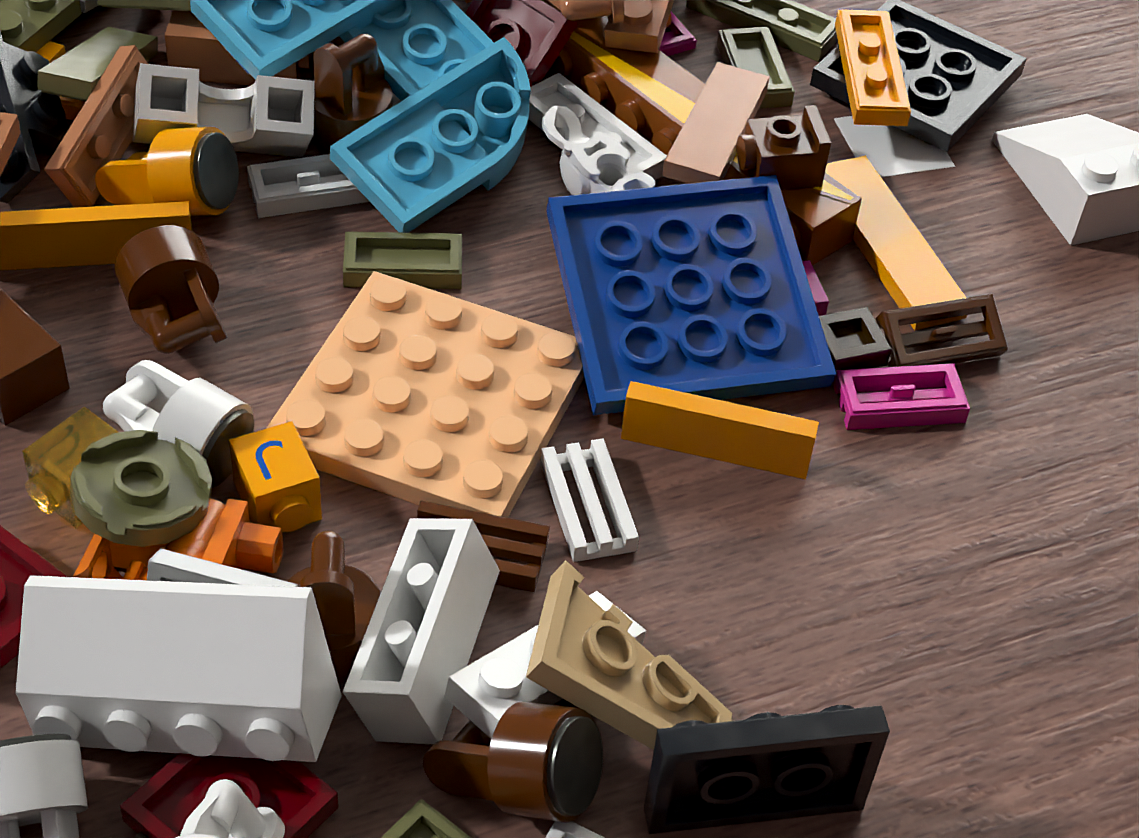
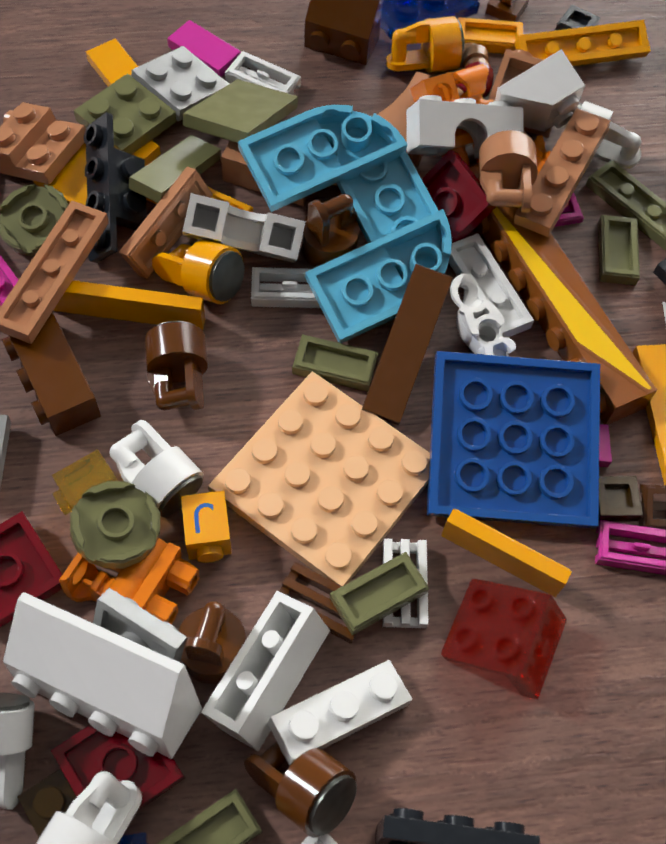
camera: 15 degrees right, 15 degrees up
(501, 209) = (407, 344): none -> reddish brown tile
(556, 510) = (379, 593): none -> olive tile
(606, 671) = (380, 744): tan wing -> none
(712, 128) = (571, 310): tile -> none
(754, 517) = (506, 633): none -> clear red bracket
(786, 147) = (612, 344): reddish brown brick -> none

